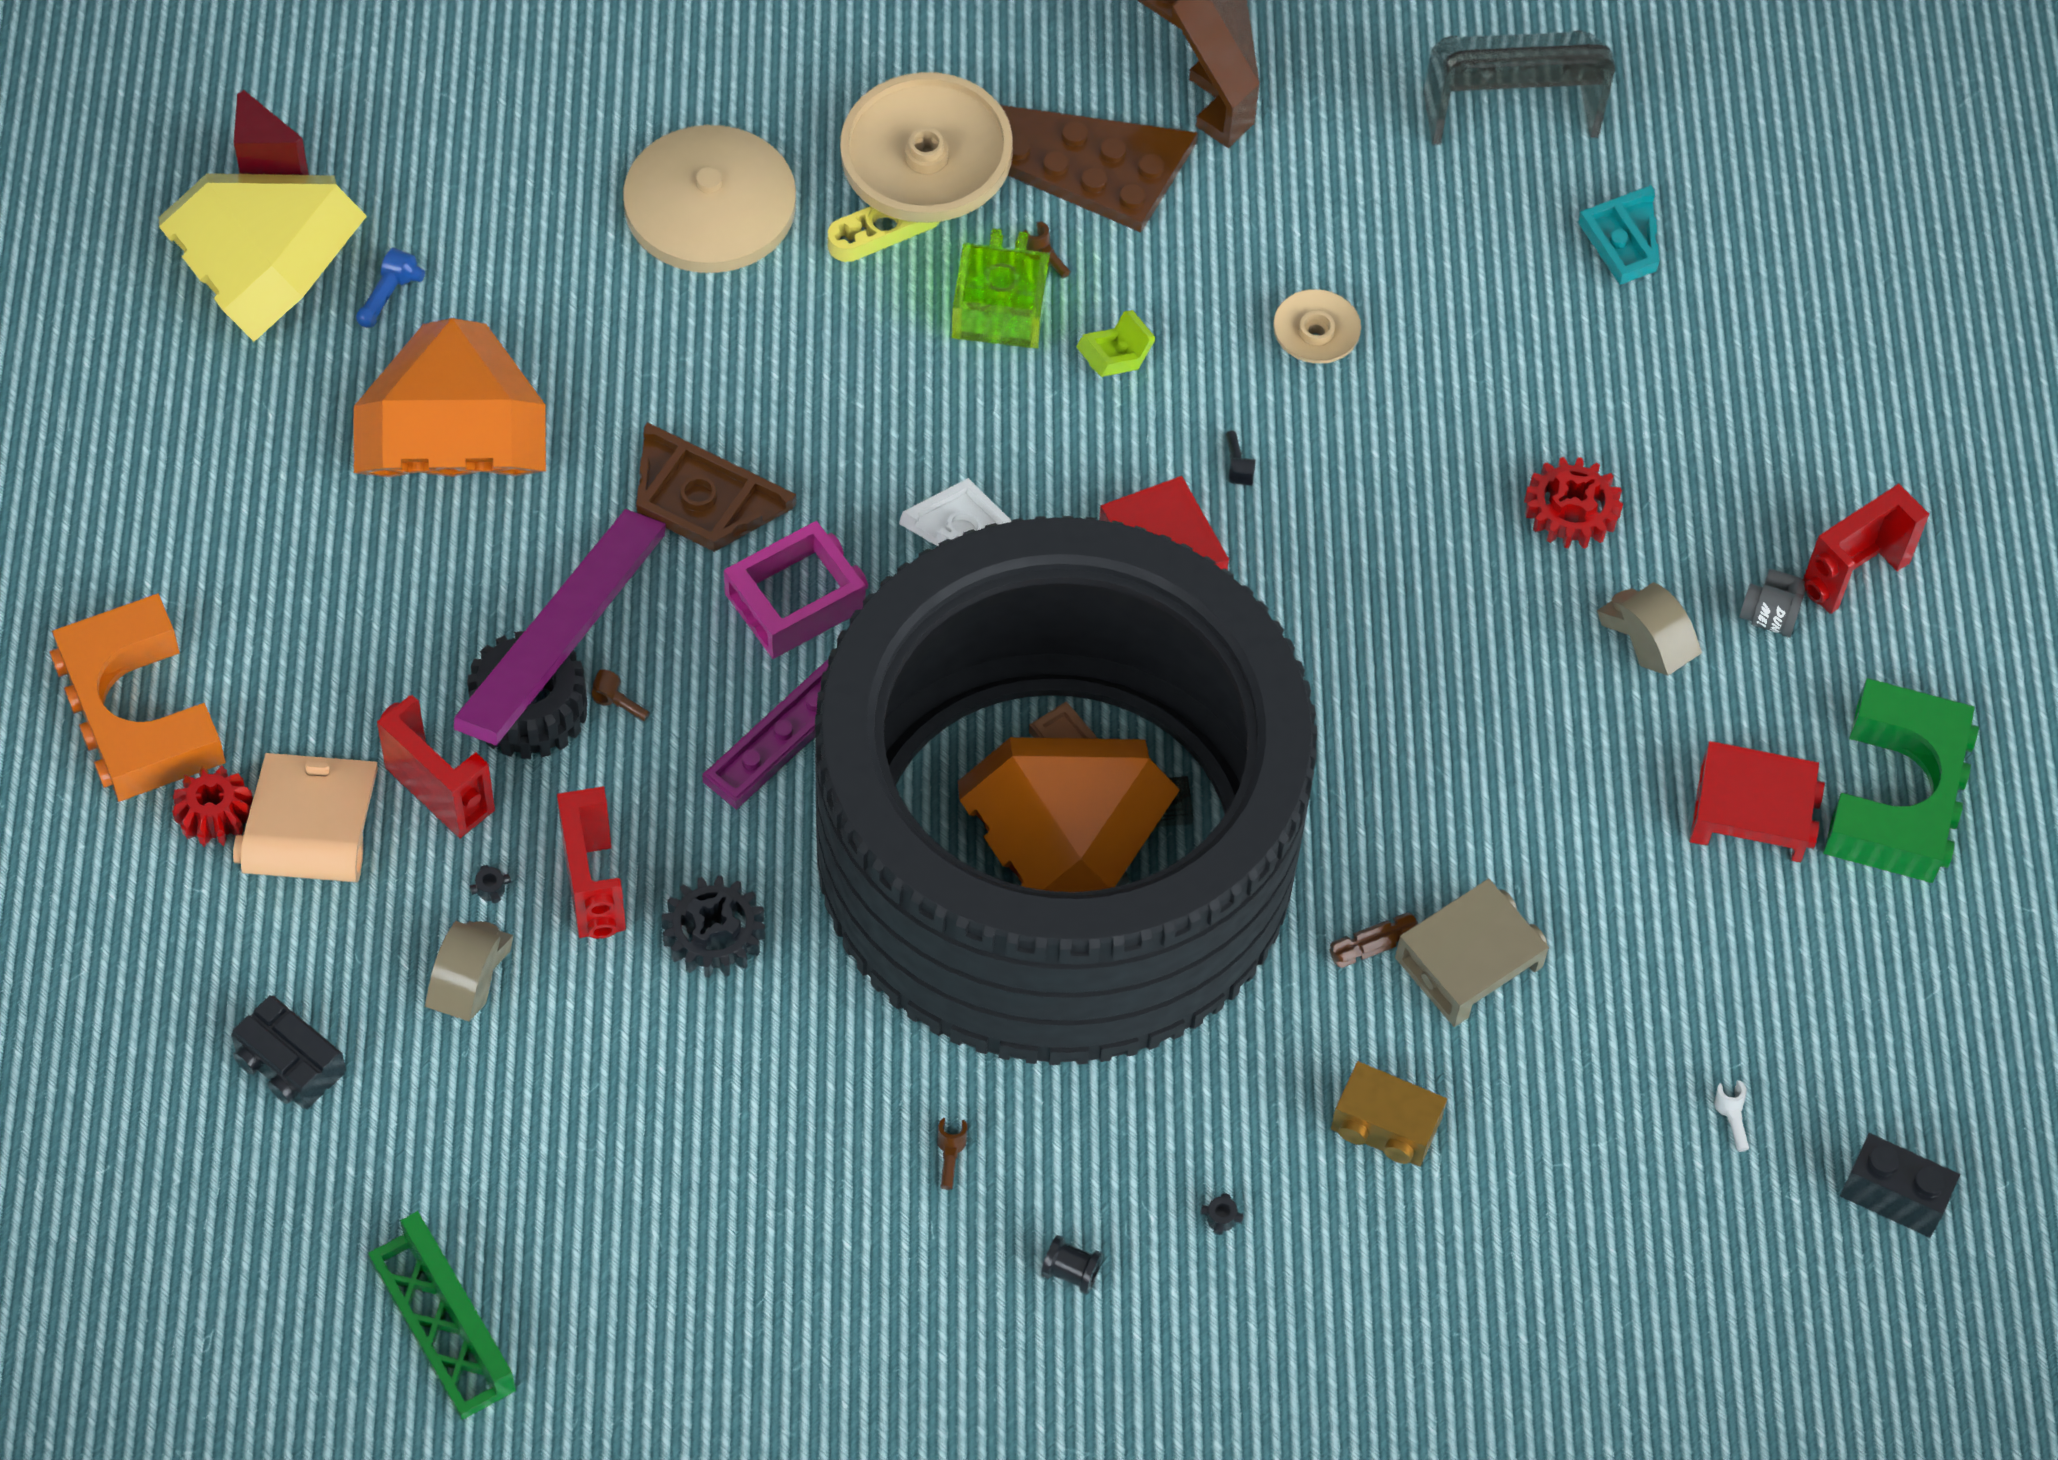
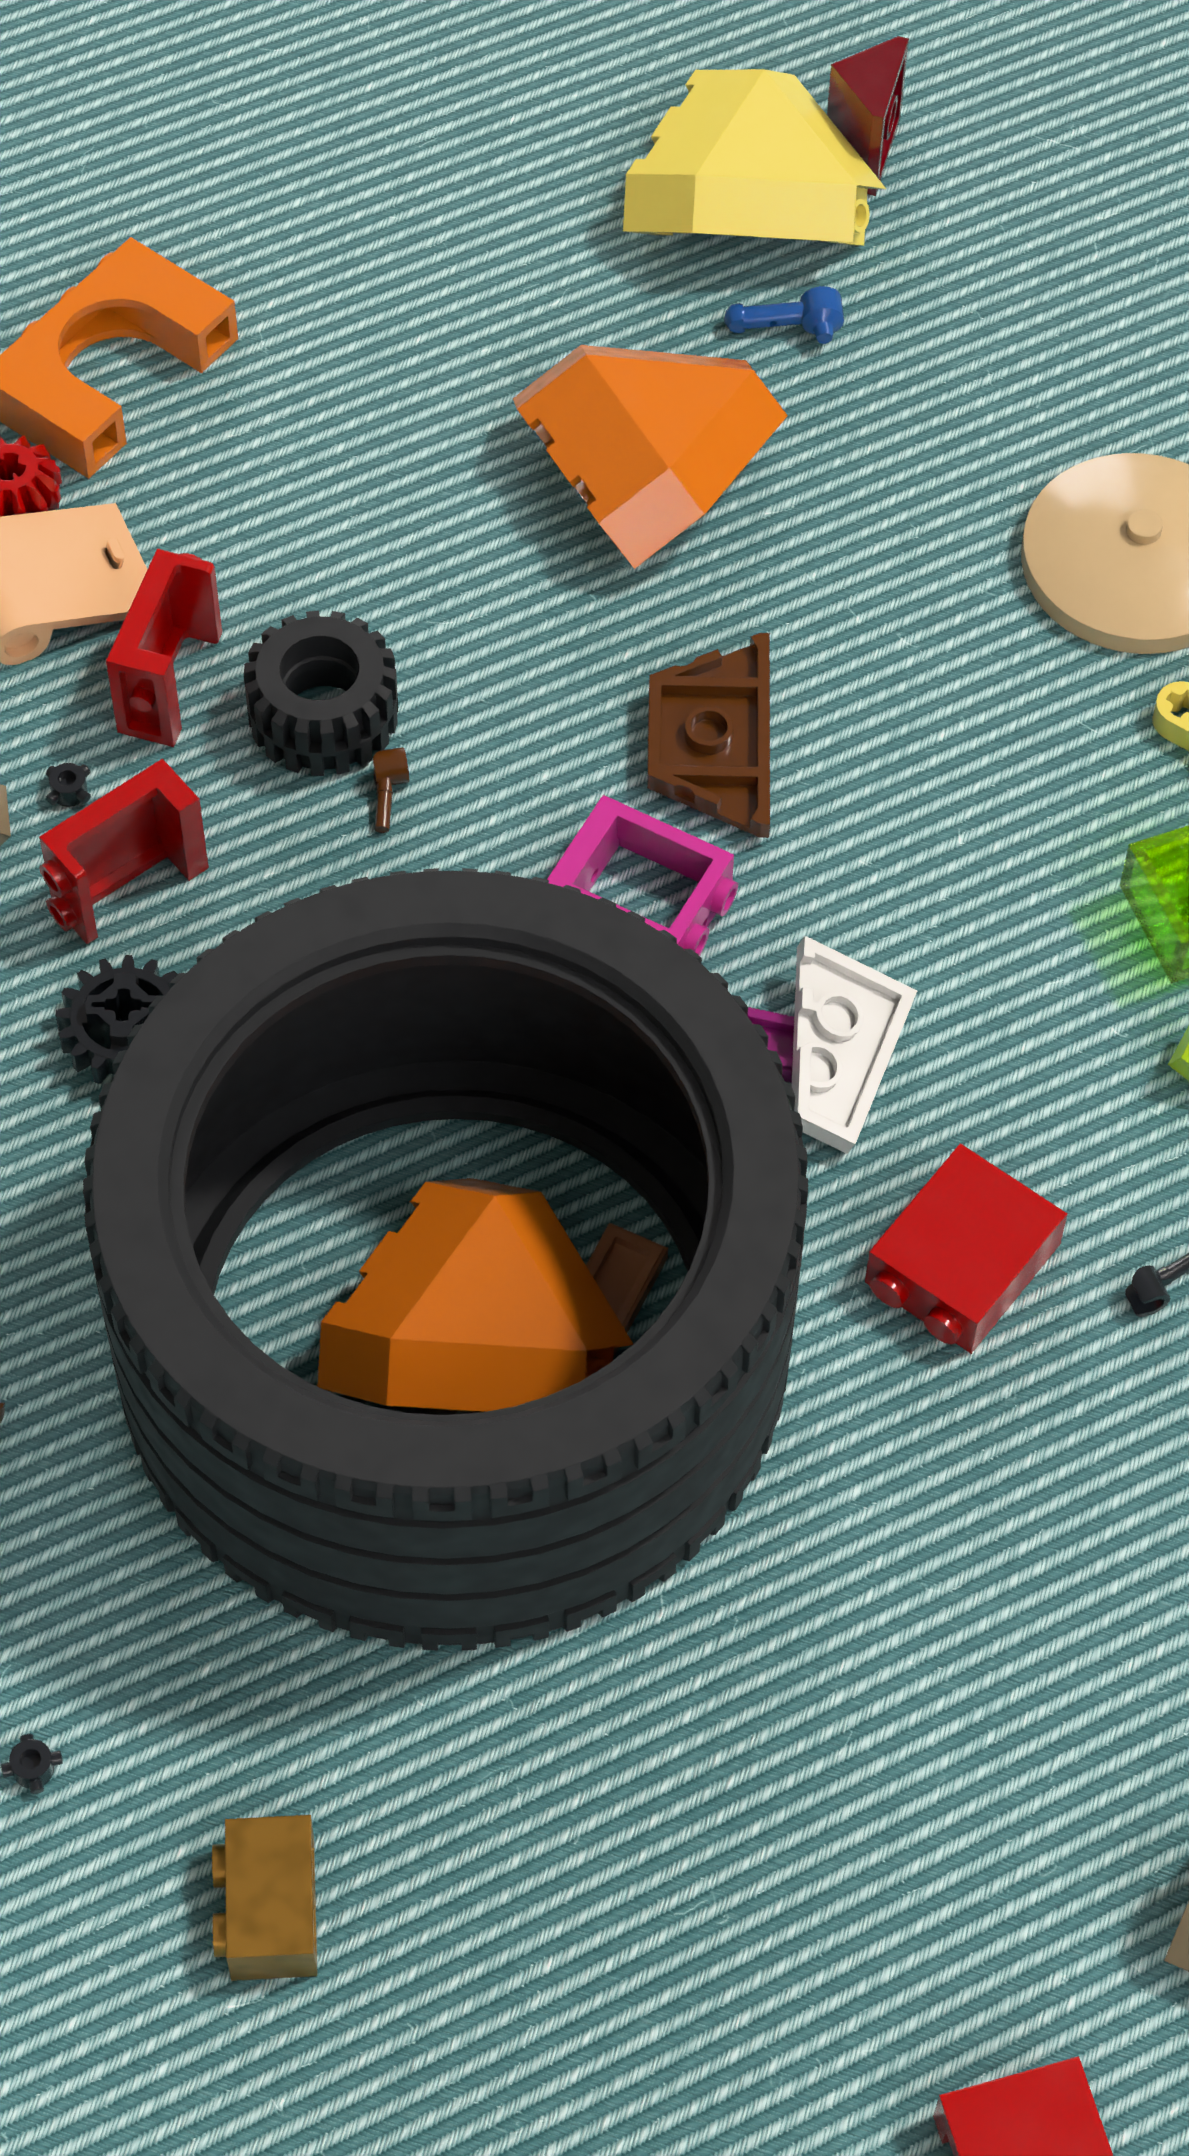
camera: 65 degrees right, 0 degrees up
(559, 627) = (406, 665): magenta tile -> none
(1371, 940) = (532, 1768): reddish brown axle -> none
(1470, 949) = (577, 1892): dark tan panel -> none

